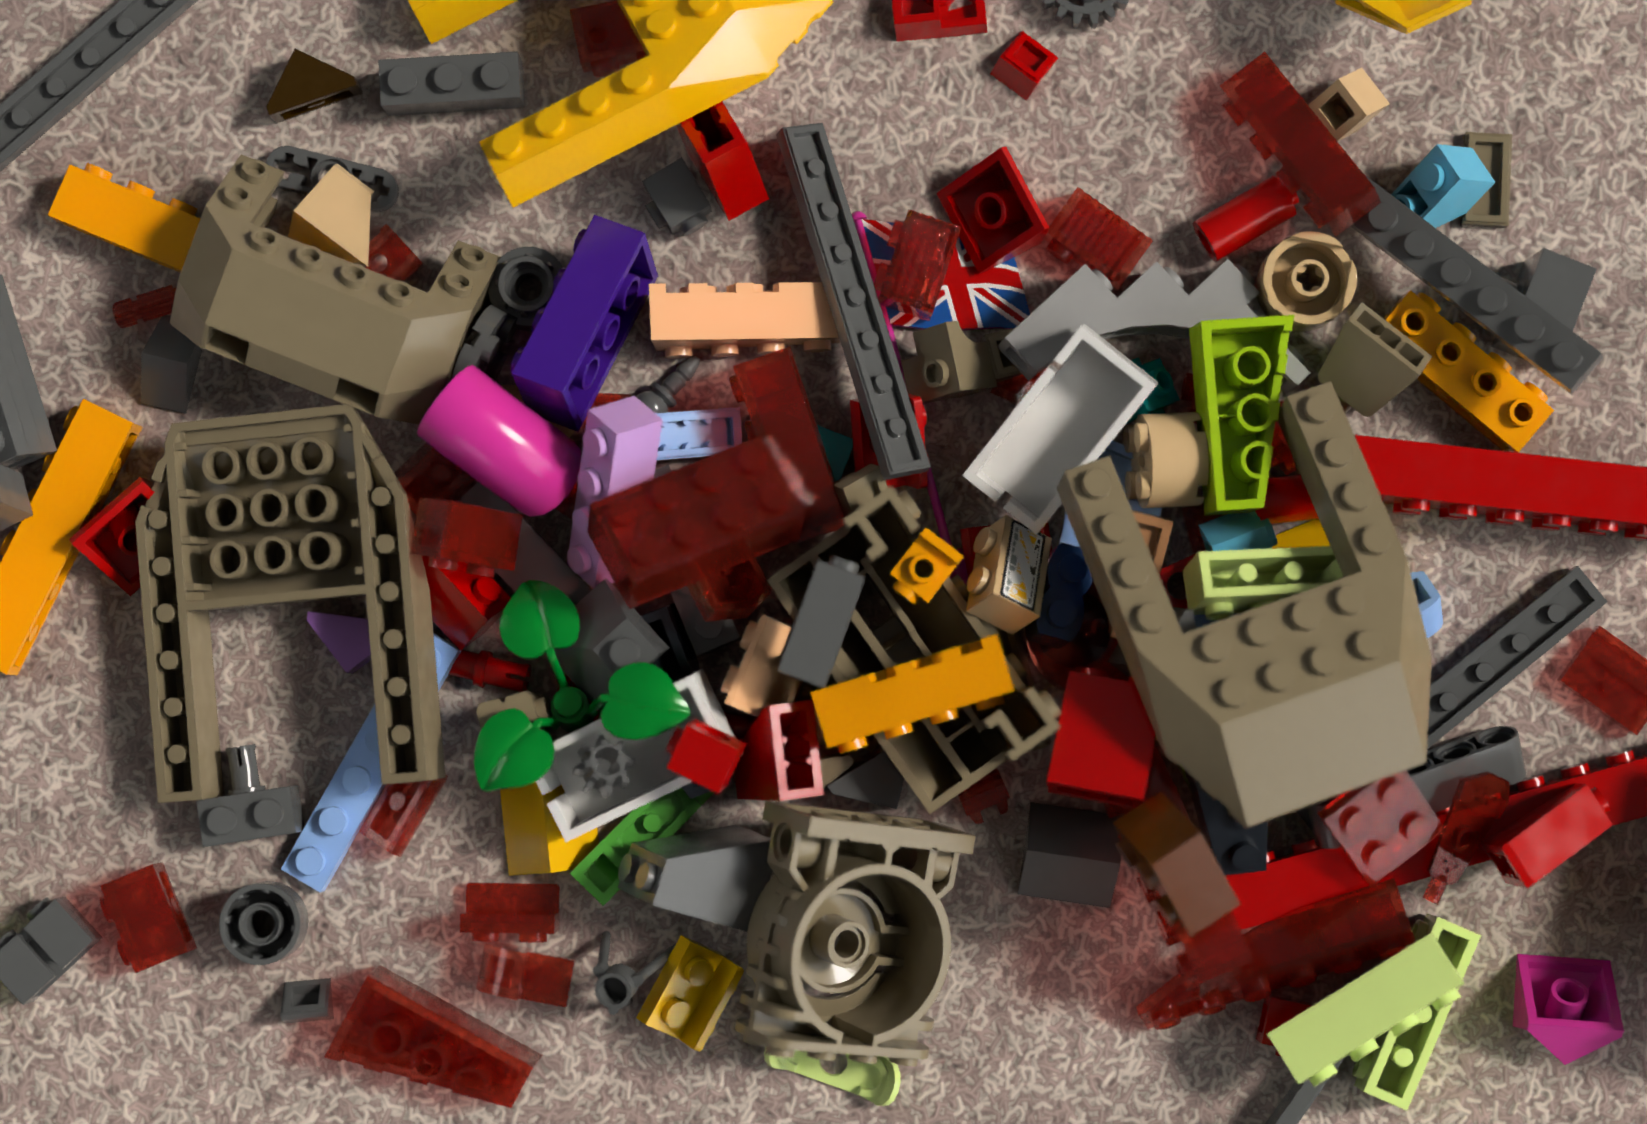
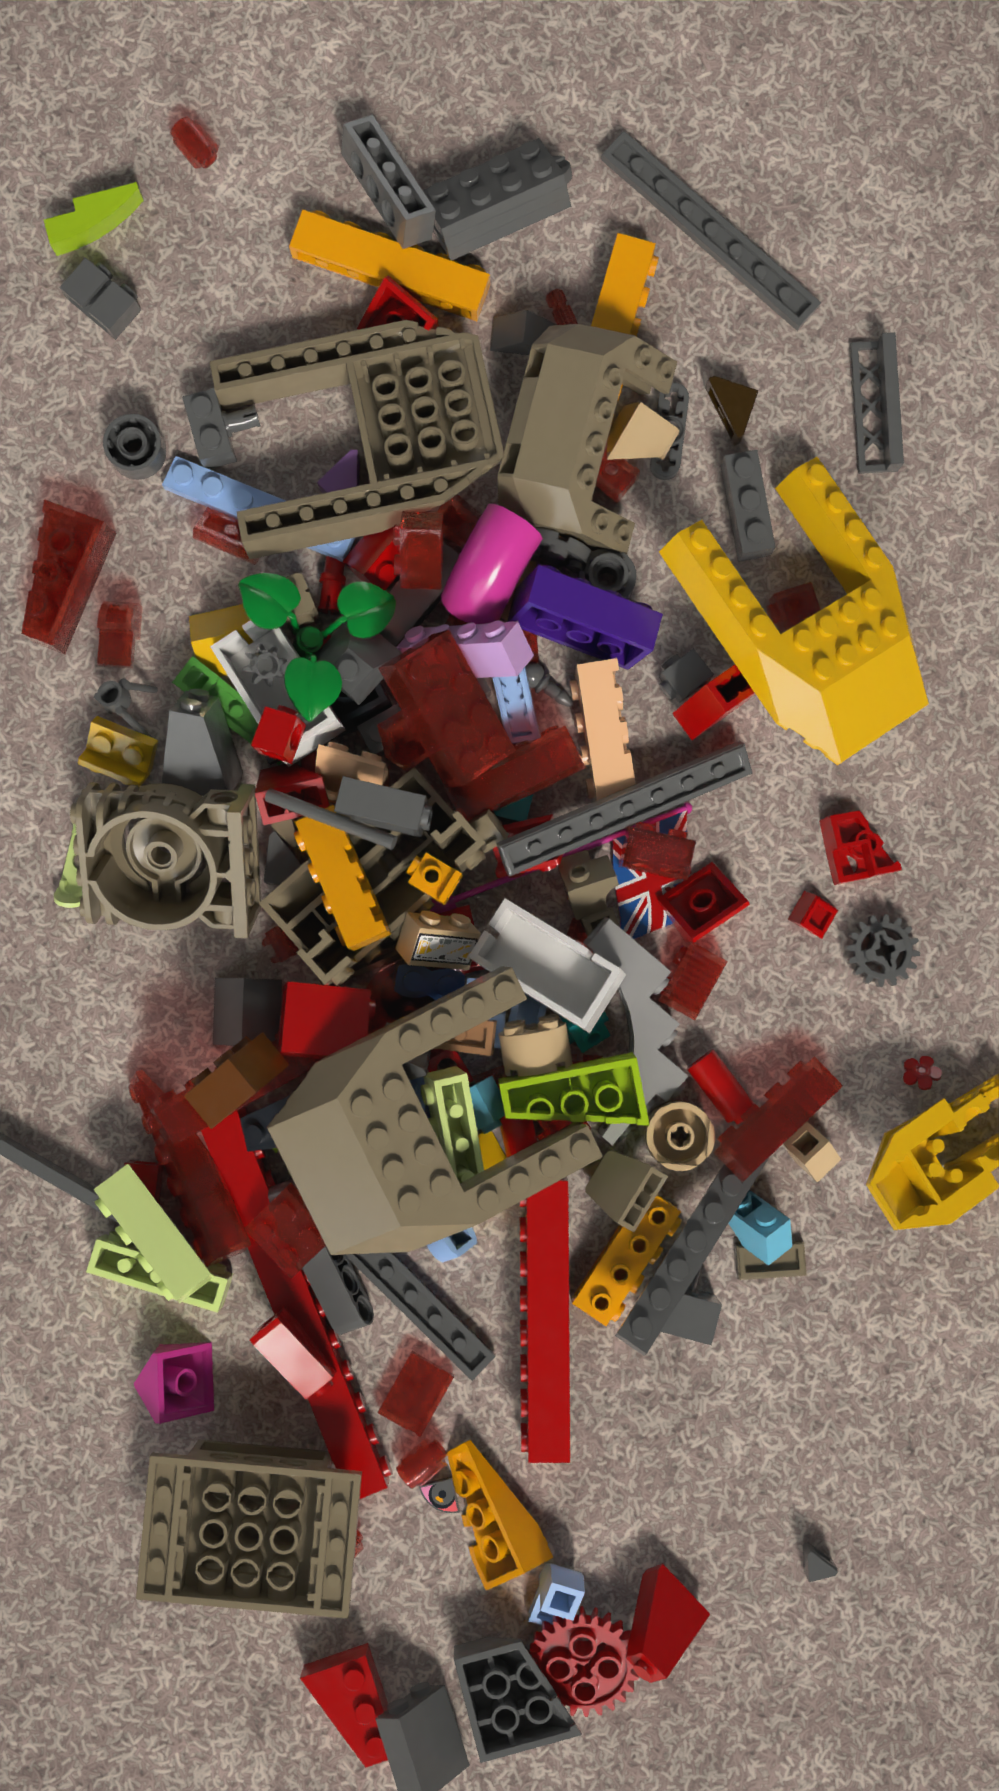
camera: 80 degrees right, 0 degrees up
(146, 917) = (130, 366): clear red brick -> none
(307, 1001) = (85, 485): dark grey slope -> none
(511, 908) = (163, 619): clear red bracket -> none
(830, 696) = (330, 818): none -> dark grey bar
(1466, 814) = (307, 1296): clear red piece -> none

